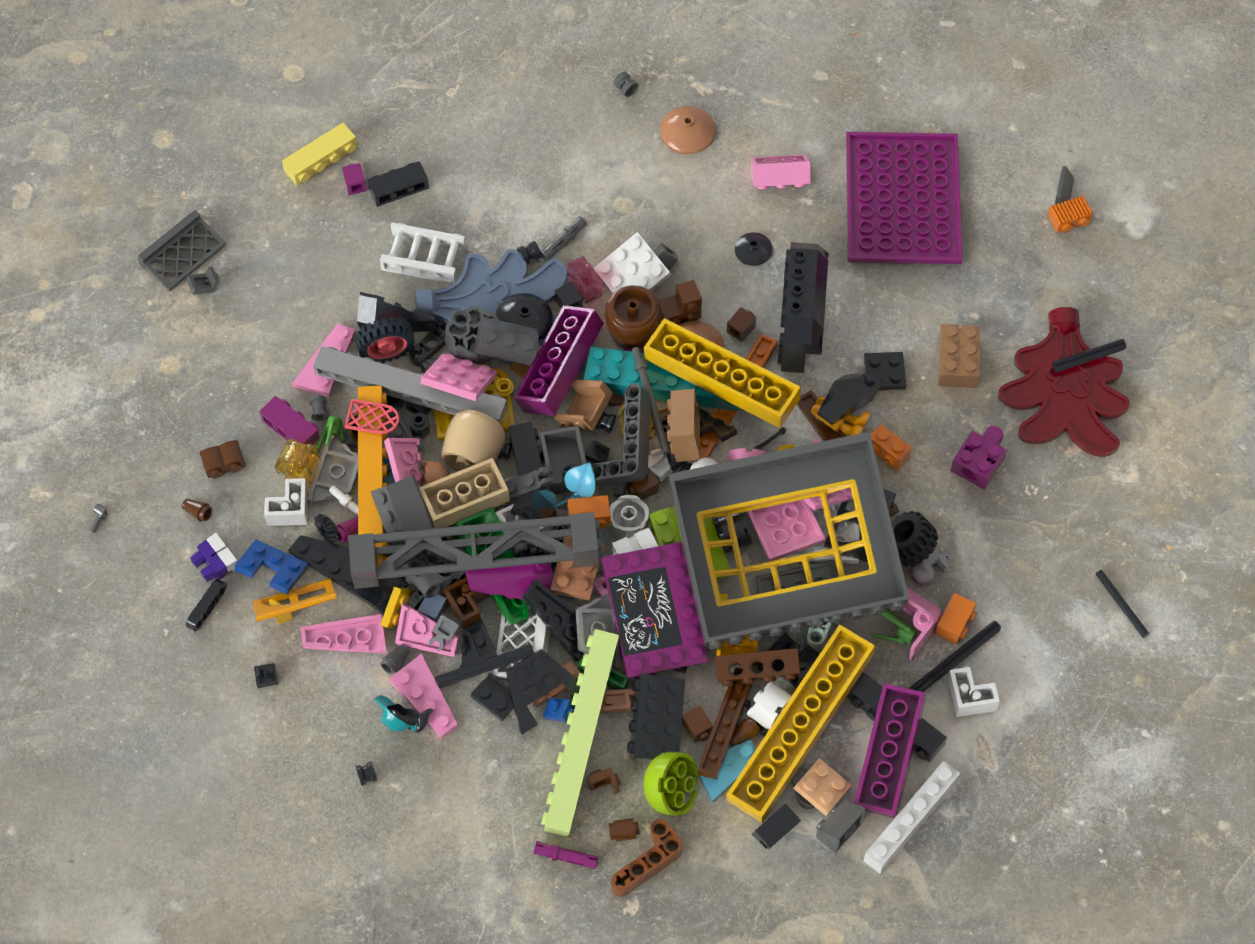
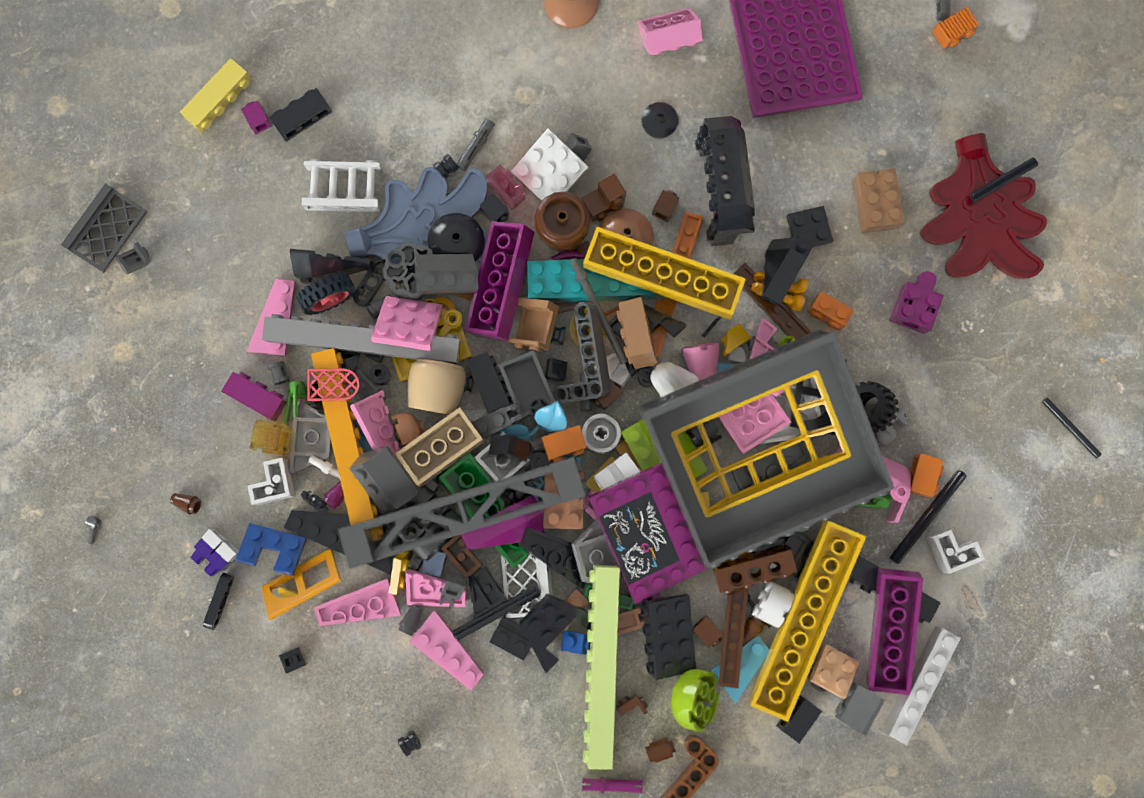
camera: 15 degrees left, 20 degrees up
(222, 459) = (197, 446): reddish brown brick -> none
(400, 718) = (427, 680): hair -> none

